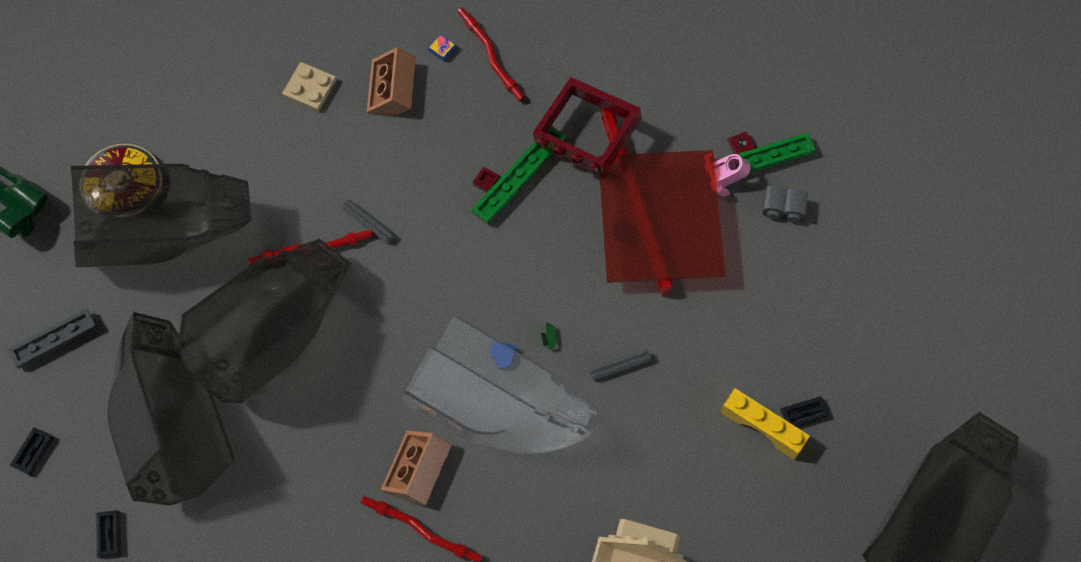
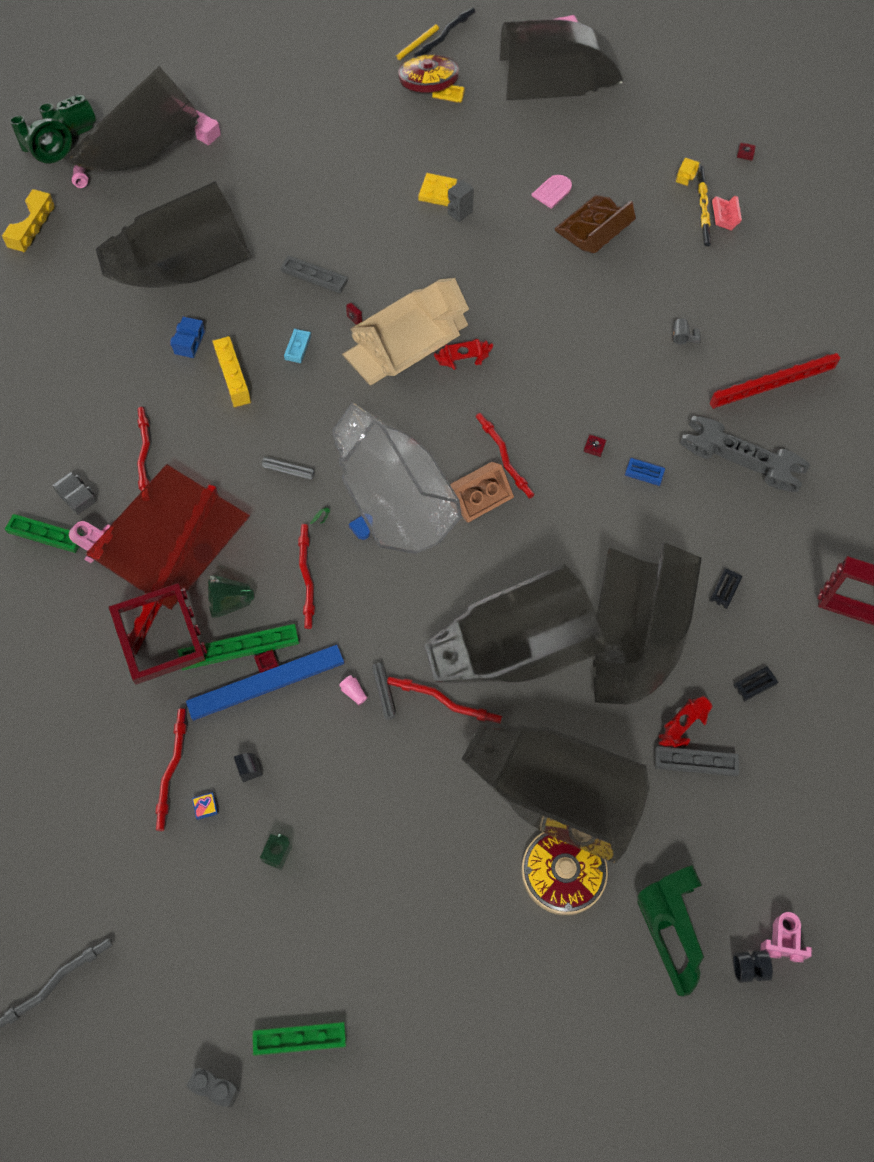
camera: 145 degrees left, 5 degrees down
(85, 346) = (694, 709): none -> red piece
(309, 86) = (344, 850): tan plate -> none
(355, 43) = (278, 860): none -> clear green brick
(391, 83) = (274, 798): nougat slope -> none
(394, 203) = (352, 688): none -> bright pink cone
(430, 90) = (247, 766): none -> black brick
(472, 164) = (264, 682): none -> blue tile
(542, 301) = (308, 608): none -> red bar
(563, 203) = (227, 595): none -> clear green cone
(729, 506) = (297, 346): none -> medium azure plate
(741, 143) = (57, 558): dark red tile -> none
(795, 312) = (143, 424): none -> red bar
(824, 415) = (197, 369): black tile -> none
(844, 433) = (188, 337): none -> blue brick

